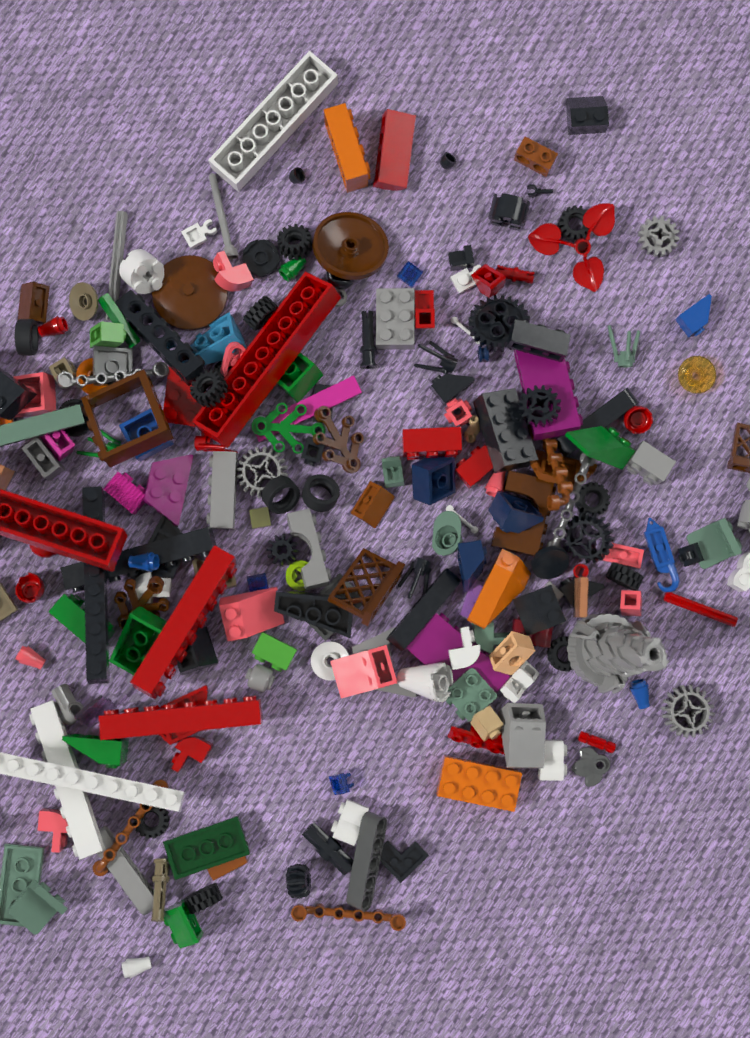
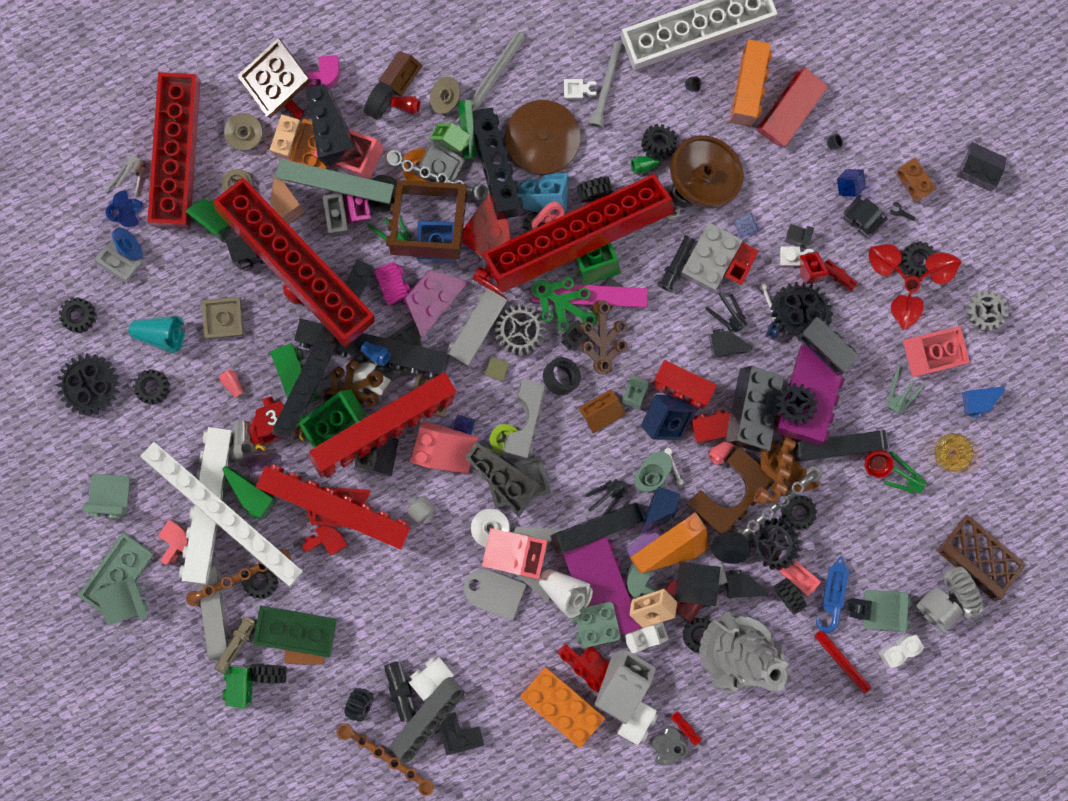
camera: 30 degrees right, 0 degrees up
(30, 588) = (263, 322): red hair -> none
(61, 366) = (395, 143): dark tan brick -> none
(76, 677) = (264, 422): none -> red torso
(135, 966) = (178, 700): white cone -> none
(142, 271) = (510, 97): white brick -> none
(203, 382) = (516, 239): black tyre -> none
(231, 277) = (584, 143): coral brick -> none
(261, 257) = (622, 145): black tile -> none
(273, 488) = (522, 349): black tyre -> none
(274, 651) = (446, 493): bright green brick -> none
(281, 543) = (499, 414): black gear -> none
(339, 783) = (440, 640): clear blue tile -> none
(366, 715) = (496, 593): none -> light grey tile
(378, 596) = (563, 494): reddish brown fence -> none
(458, 419) = (722, 377): coral brick -> none
(468, 654) = (614, 588): white brick -> none
(472, 430) = (726, 393): tan arm -> none
(481, 188) = (851, 182): none -> clear blue panel
(487, 724) = (597, 658): tan brick -> none
(514, 513) = (723, 486): dark blue slope -> none
(576, 570) = (751, 567): red hinge -> none
(581, 597) = (740, 592): nougat tile -> none
(603, 445) = (834, 469): green slope -> none
(631, 603) = (783, 622): coral brick -> none
(634, 295) = (936, 351): none -> coral slope
(640, 691) = (749, 704): blue cone -> none
(650, 464) = (867, 508): light grey brick -> none
(677, 418) = (914, 482): none -> green plant
(689, 719) = (785, 738): light grey gear -> none

